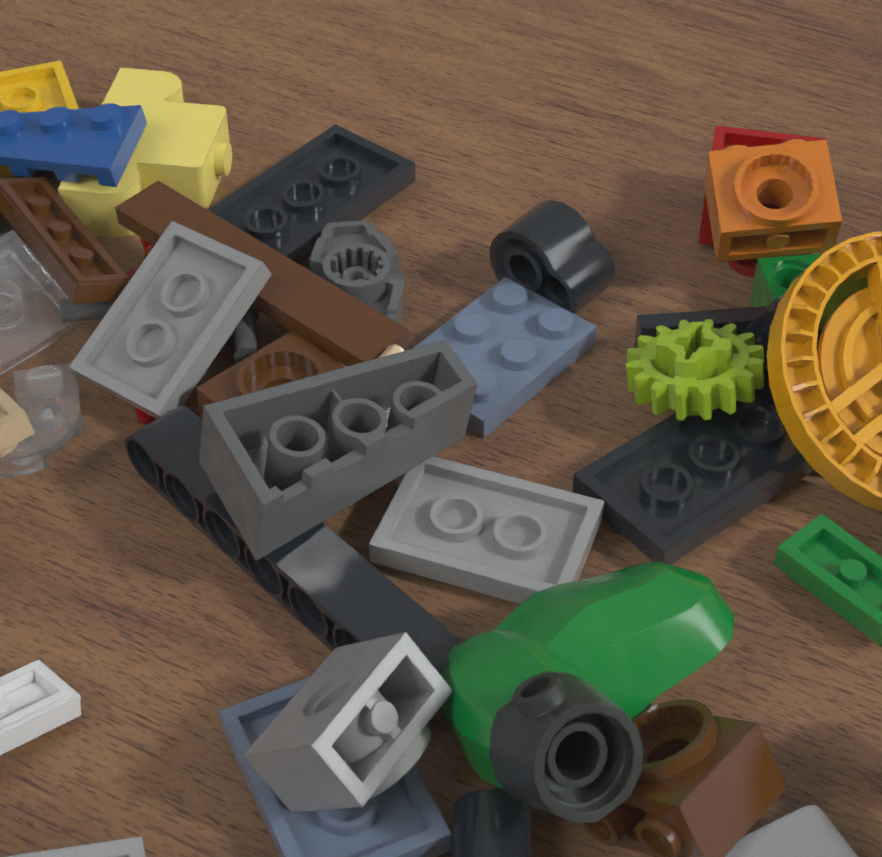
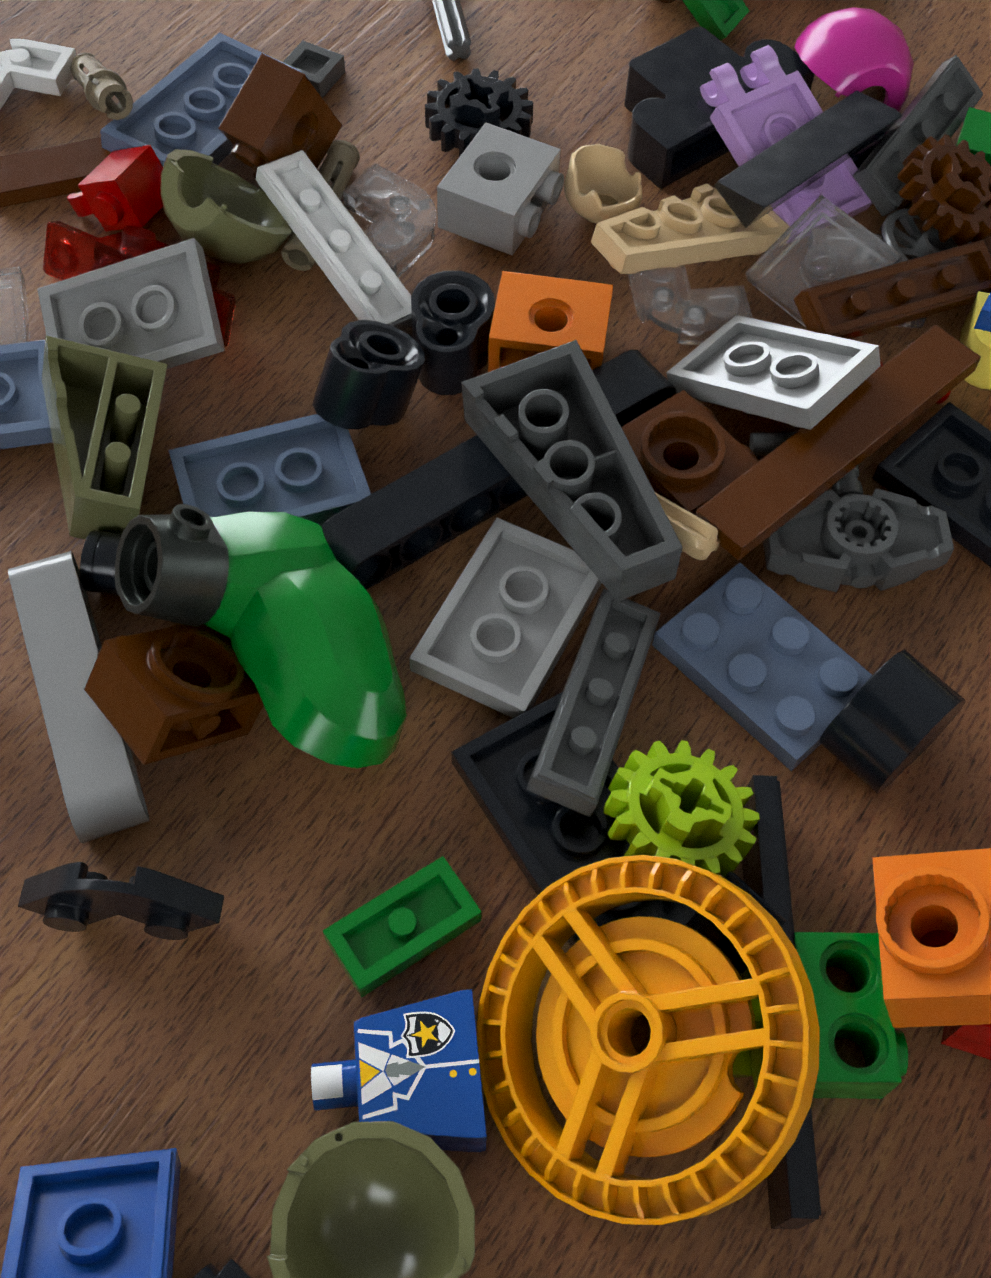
camera: 95 degrees right, 15 degrees up
(87, 613) = (453, 328): none -> black piece
(90, 516) = (547, 312): none -> orange brick
(181, 673) = (368, 376): none -> black piece
(351, 726) = (261, 454): light grey brick -> none
(586, 445) = (594, 704): none -> dark grey tile

